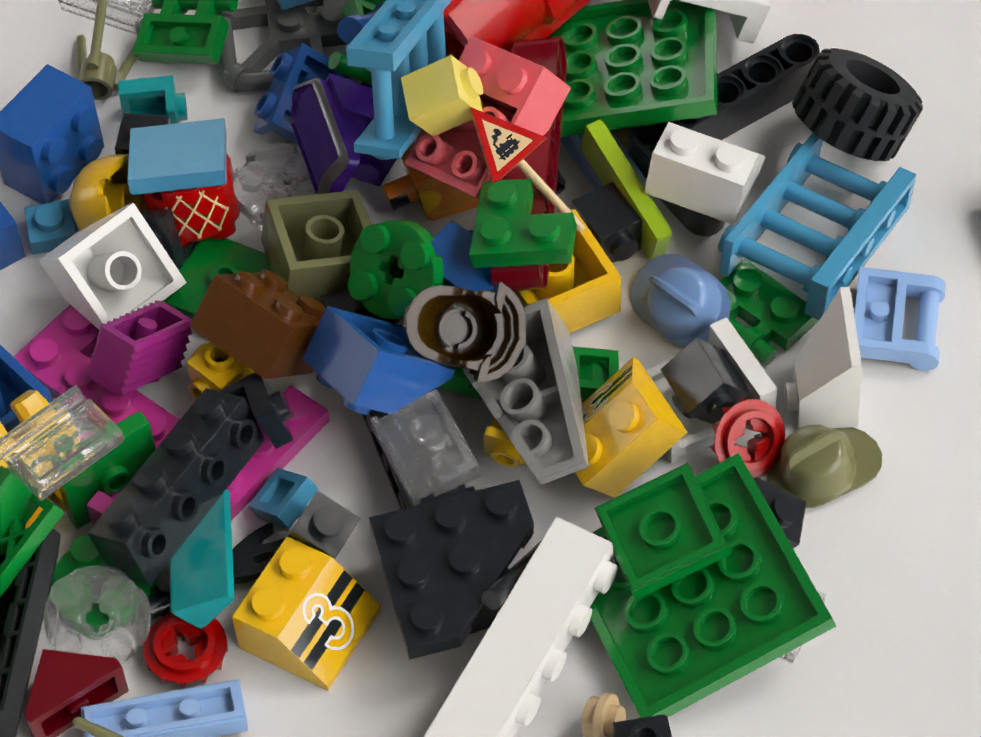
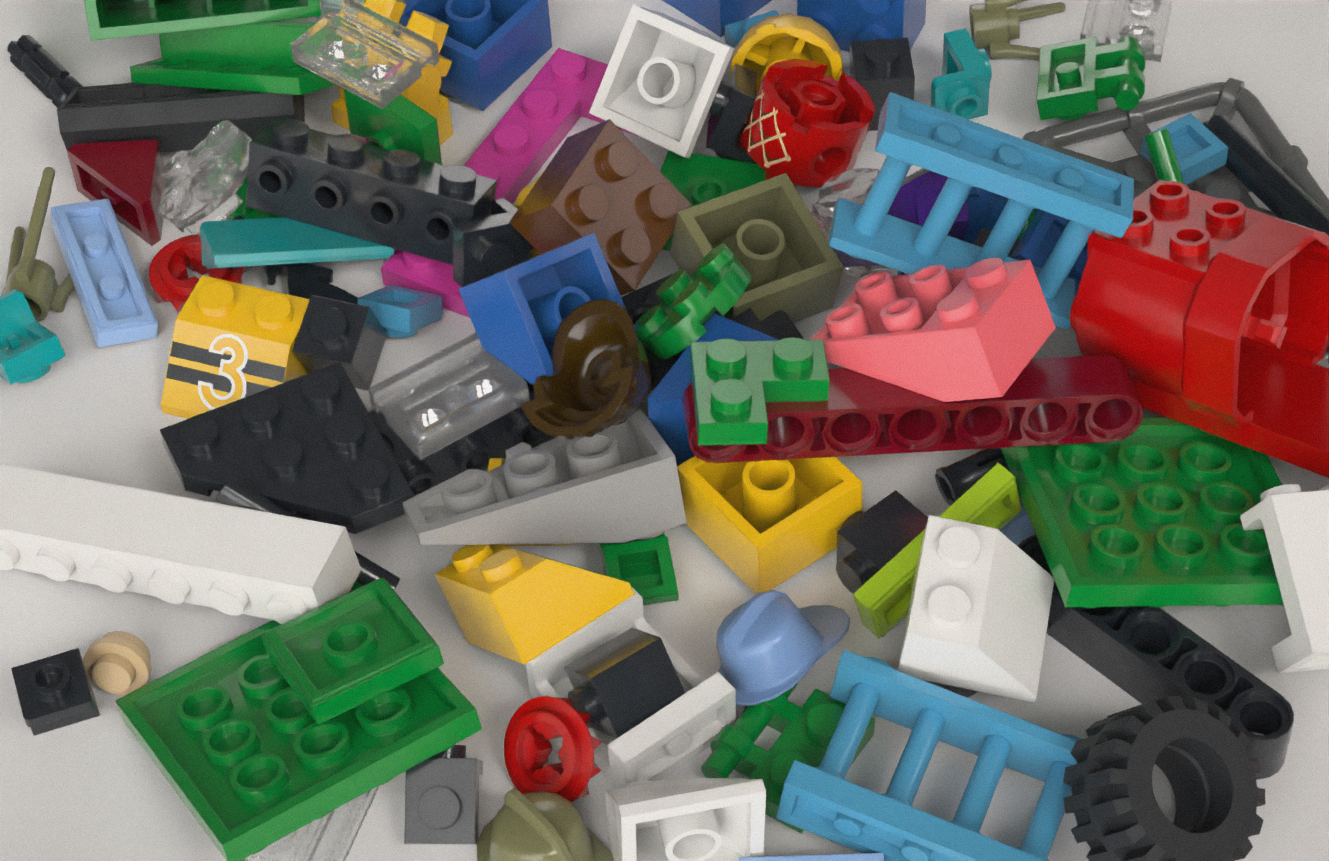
camera: 80 degrees right, 5 degrees down
(139, 348) = (550, 110): magenta brick -> none
(177, 156) = (822, 77): dark azure tile -> none
(442, 95) = (915, 248): light yellow brick -> none
(506, 147) = (860, 338): piece -> none

